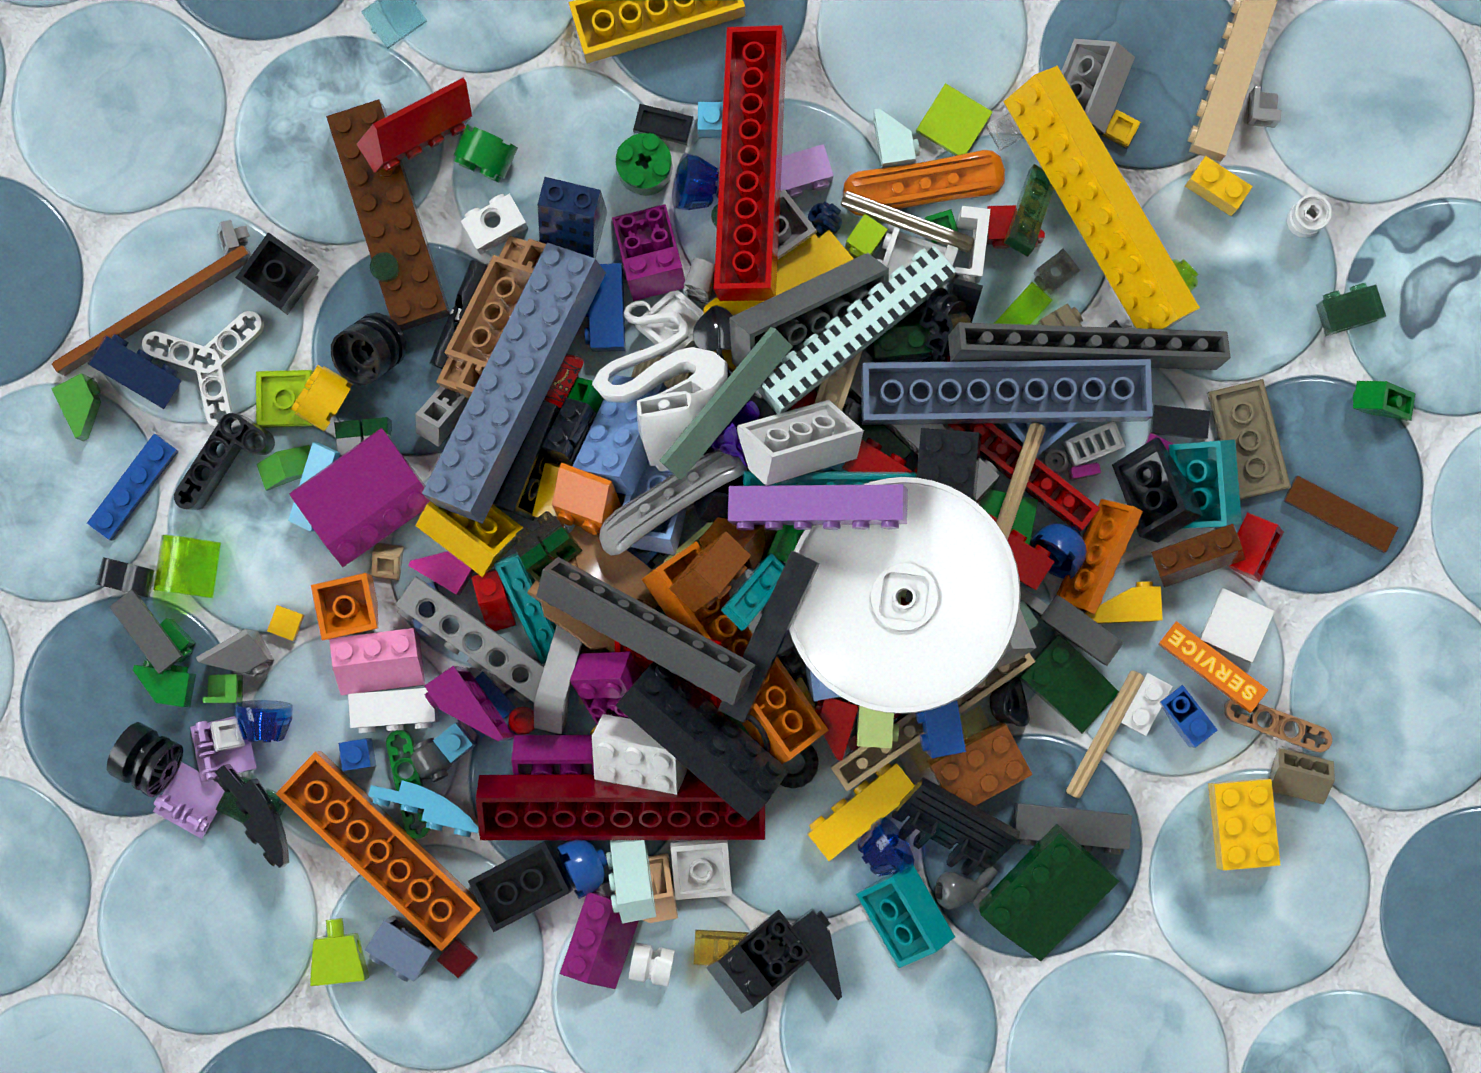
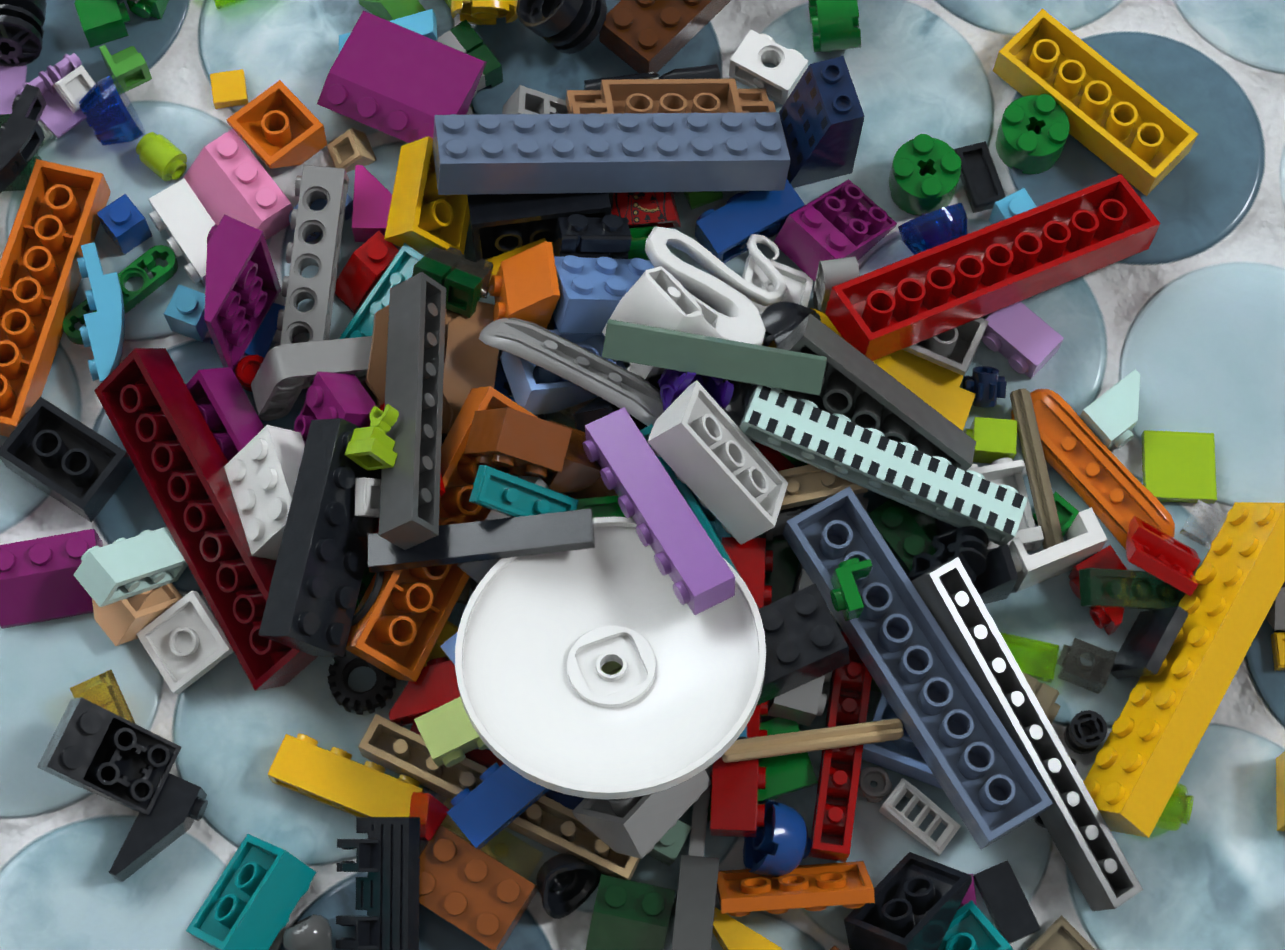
camera: 50 degrees right, 15 degrees down
(240, 653) = (172, 54): light grey slope -> none
(316, 700) = (161, 156): none -> lime brick
(430, 761) = (153, 300): dark grey head -> none
(583, 866) = (120, 510): blue cylinder -> none
(646, 55) = (1032, 134): none -> green brick
(651, 964) = (47, 646): white wheel -> none
(663, 674) = (371, 445): none -> lime piece
(693, 695) = (367, 497): none -> white tile
(884, 849) = (314, 830): clear blue piece -> none
(917, 769) = (430, 811): none -> red slope
(941, 412) = (845, 592): none -> green bracket
(1015, 176) = (1162, 555): none -> red slope
(1069, 223) = (1148, 642): none -> black tile
(1084, 471) = (881, 821): magenta tile -> none
(1100, 306) = (1080, 738): none -> black wheel

